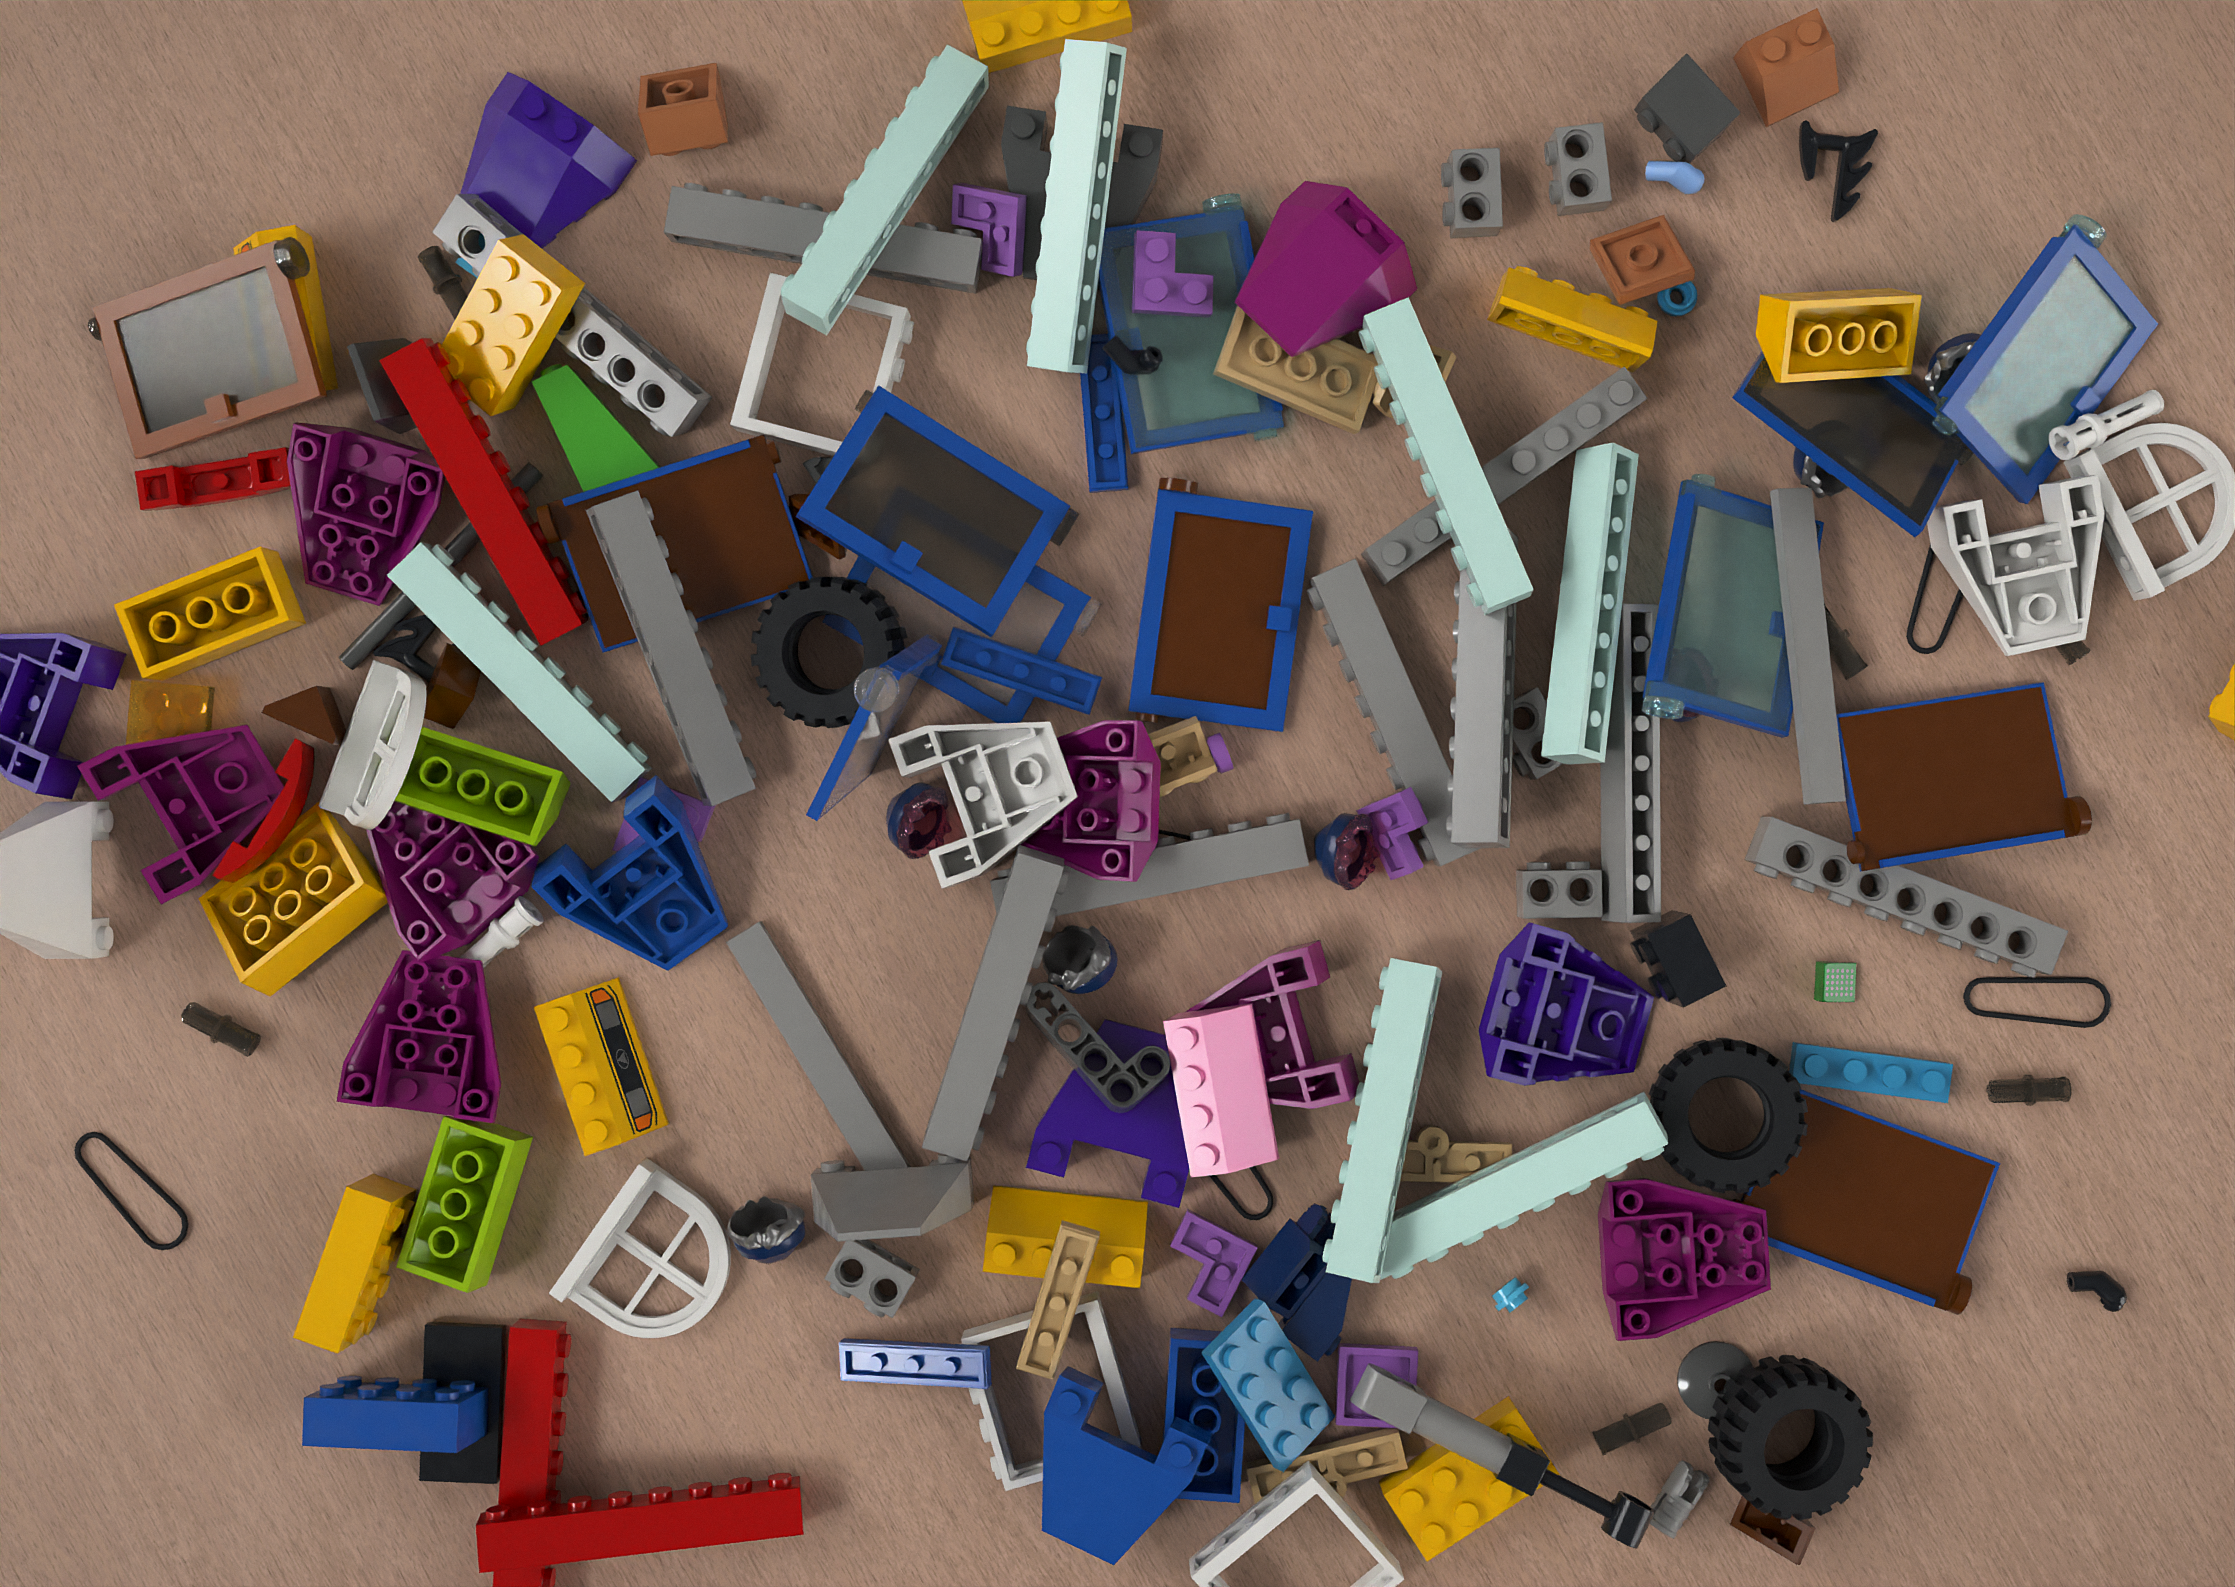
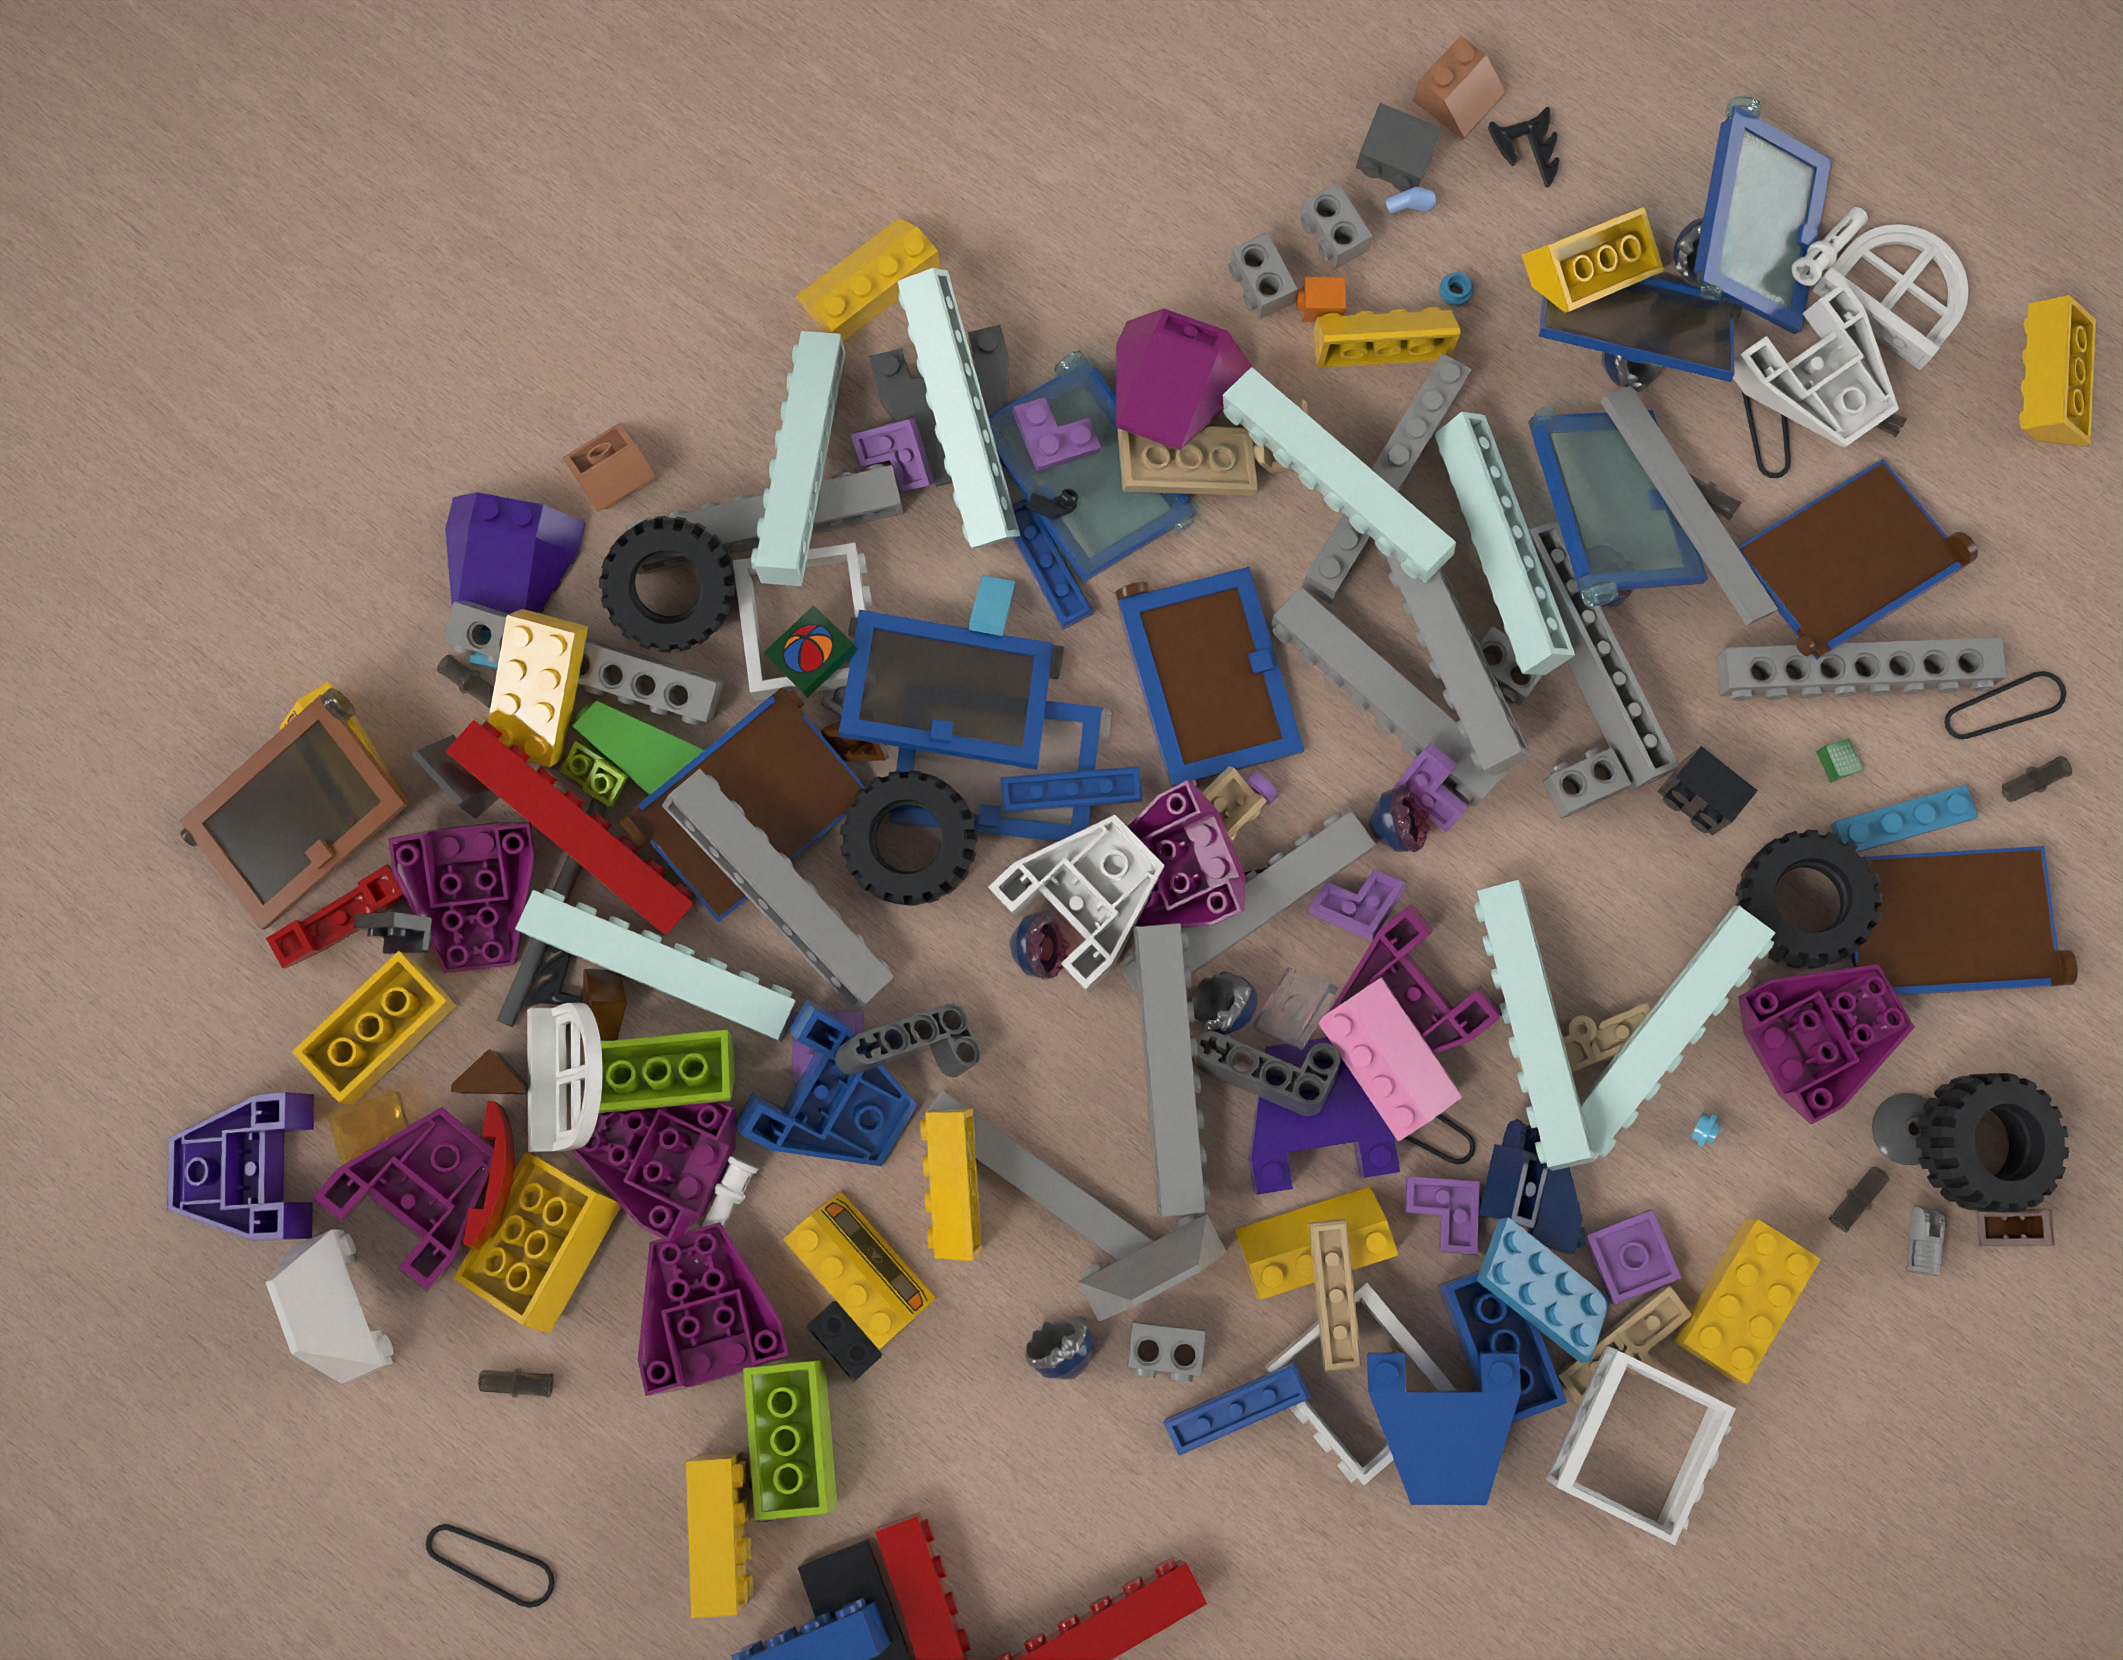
camera: 20 degrees left, 10 degrees down
(272, 525) = (400, 931): none -> black bracket
(539, 444) = (595, 772): none -> lime slope
(555, 1131) = (844, 1341): none -> black bracket
(613, 1231) = (927, 1412): white window -> none
(654, 305) = (640, 622): none -> black tyre
(728, 1023) = (953, 1184): none -> yellow slope
(735, 863) = (932, 1033): none -> dark grey beam
(808, 409) = (810, 651): none -> tile
(881, 697) = (976, 819): clear door -> none
(1023, 437) = (992, 605): none -> medium azure tile
(1149, 996) = (1295, 1007): none -> clear tile
(1261, 927) = (1360, 912): none -> medium lavender plate
(1505, 1455) = (1755, 1258): piece -> none
(1526, 245) = (1321, 297): none -> orange brick
(1559, 1012) = (1633, 876): dark purple wedge -> none
(1642, 259) = (1416, 271): nougat tile -> none

